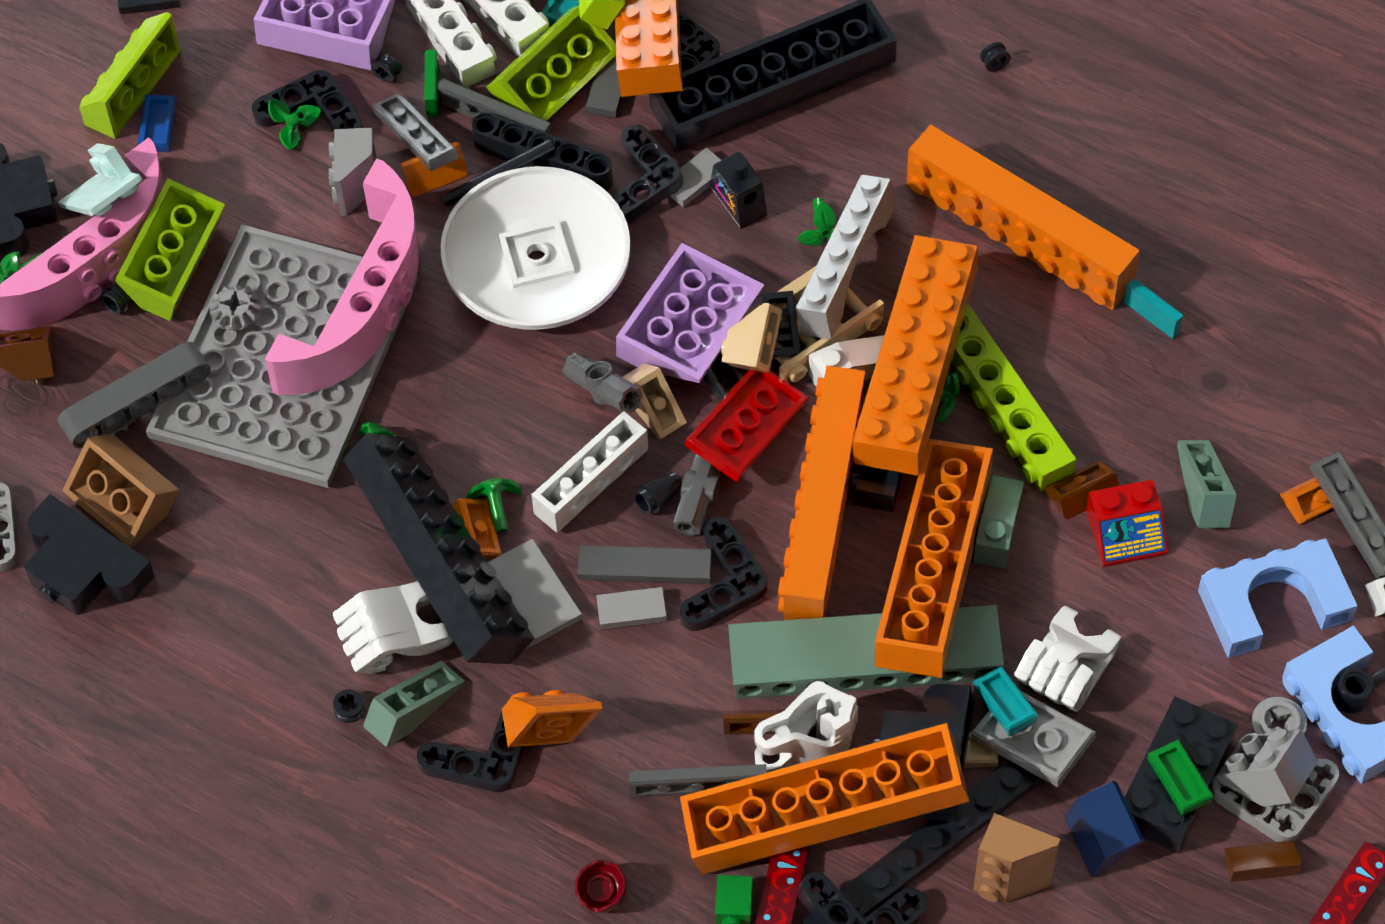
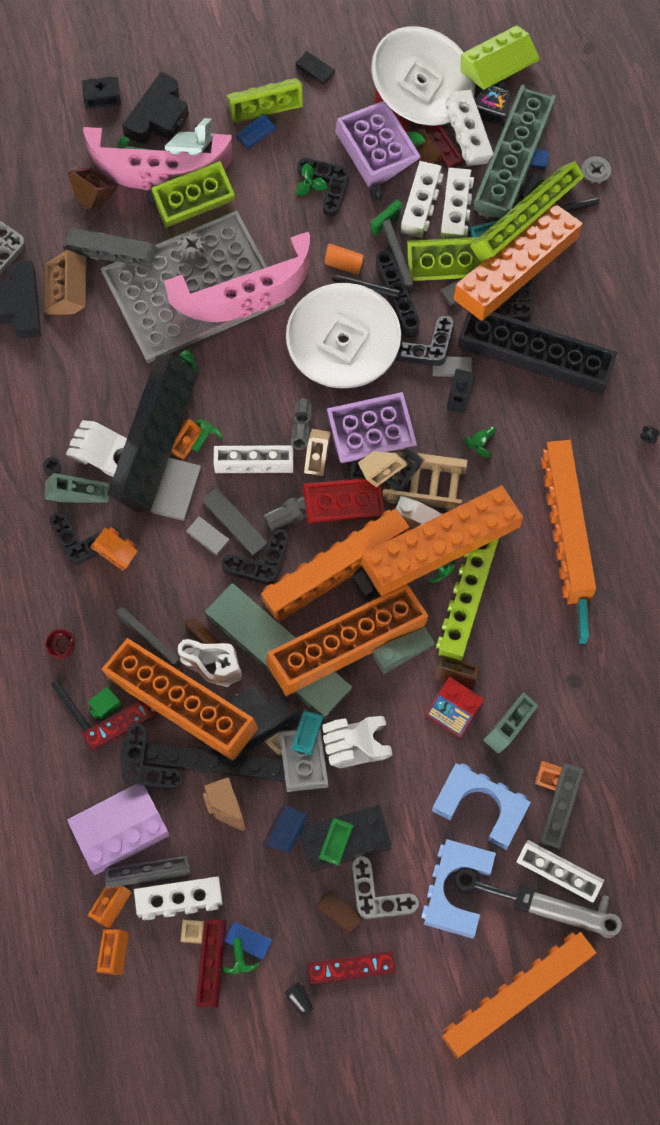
camera: 45 degrees right, 10 degrees up
(351, 159) = (309, 220): light grey slope -> none
(415, 131) = (352, 234): dark grey tile -> none
(657, 492) = (273, 495): black cone -> none
(825, 294) = (436, 475): light grey arch -> none
(1269, 766) = (385, 876): light grey slope -> none
(1281, 709) = (412, 853): light grey gear -> none

